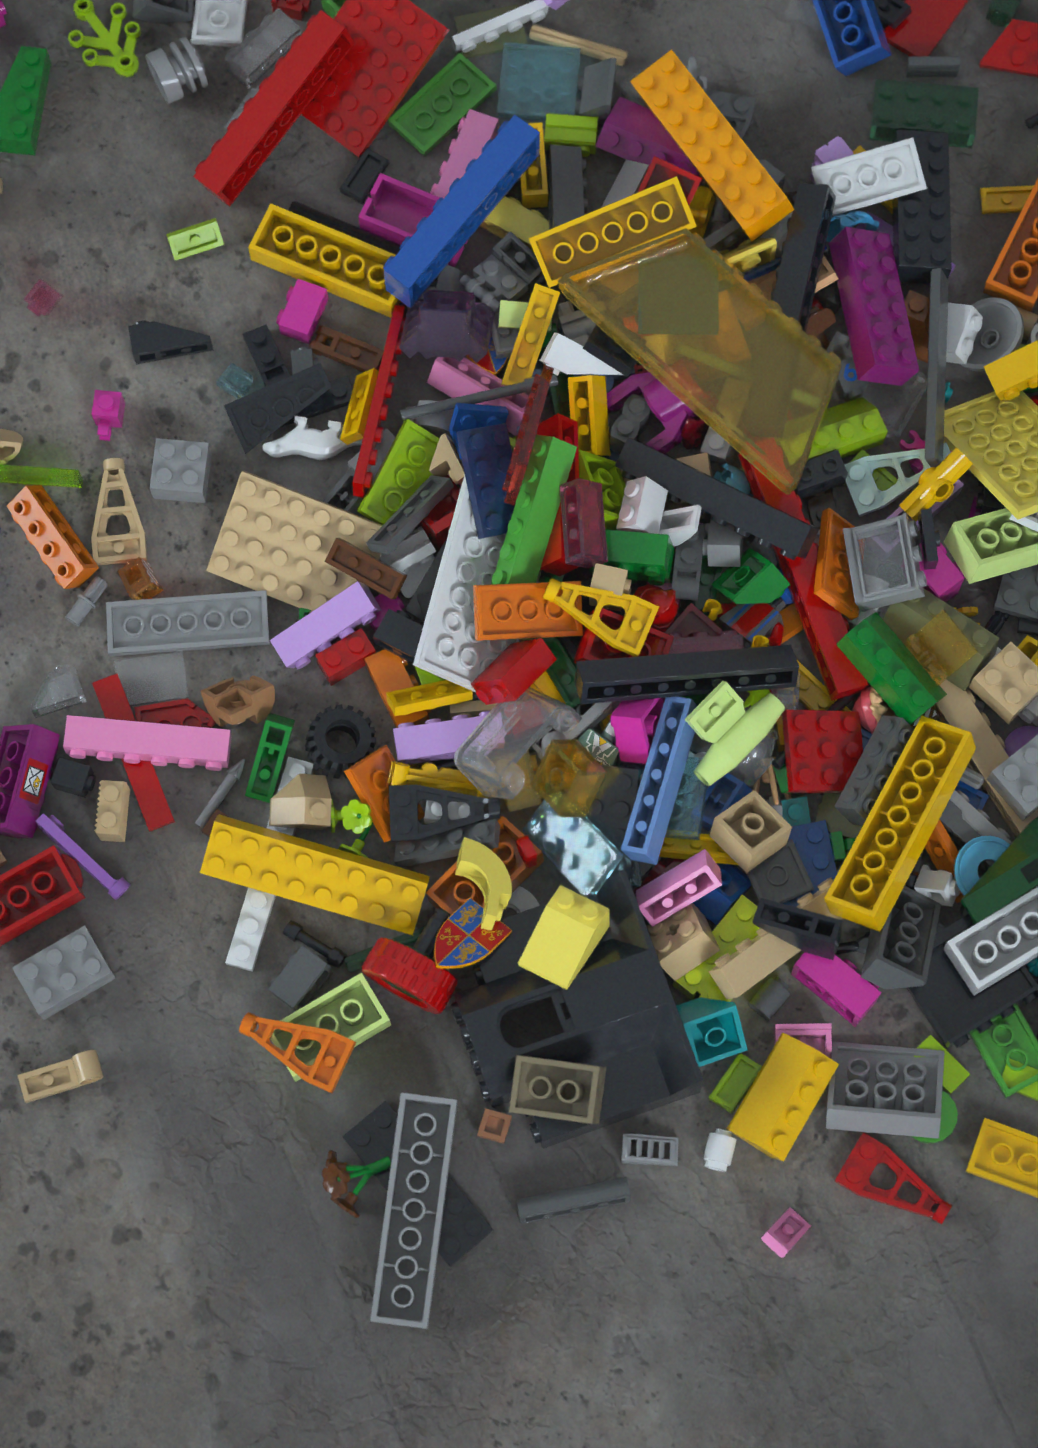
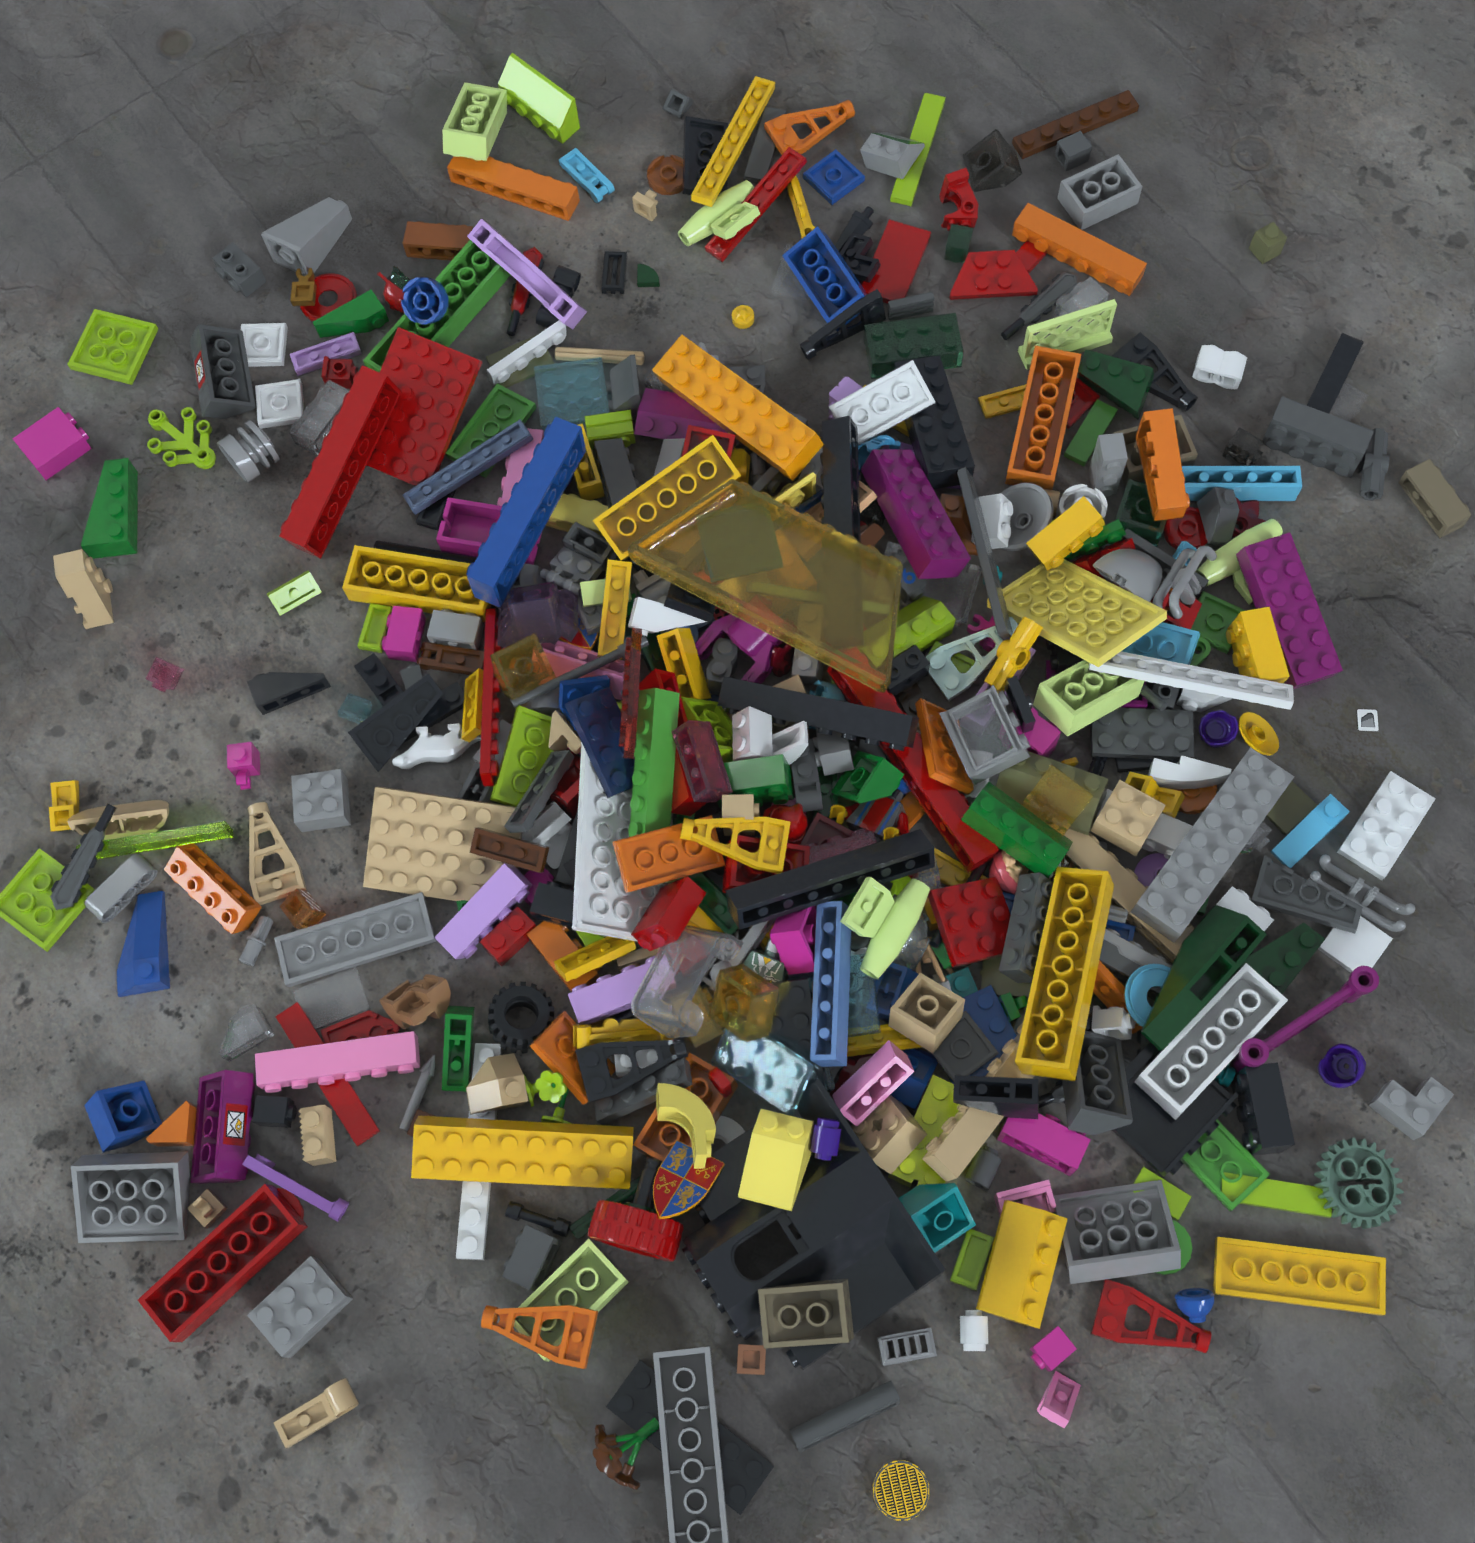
camera: 10 degrees left, 5 degrees down
(272, 297) = (374, 628): none -> lime tile
(358, 319) = (455, 629): none -> light grey brick
(408, 141) = (467, 467): none -> sand blue tile
(420, 379) = (522, 667): none -> clear yellow slope
(610, 1280) = (900, 1490): none -> tile
(617, 928) = (825, 1138): none -> dark purple brick
(746, 35) = (743, 316): none -> yellow tile
(791, 1185) = (1052, 1349): none -> dark pink brick
(887, 66) = (871, 312): none -> black plate
(944, 1175) = (1195, 1303): none -> blue brick

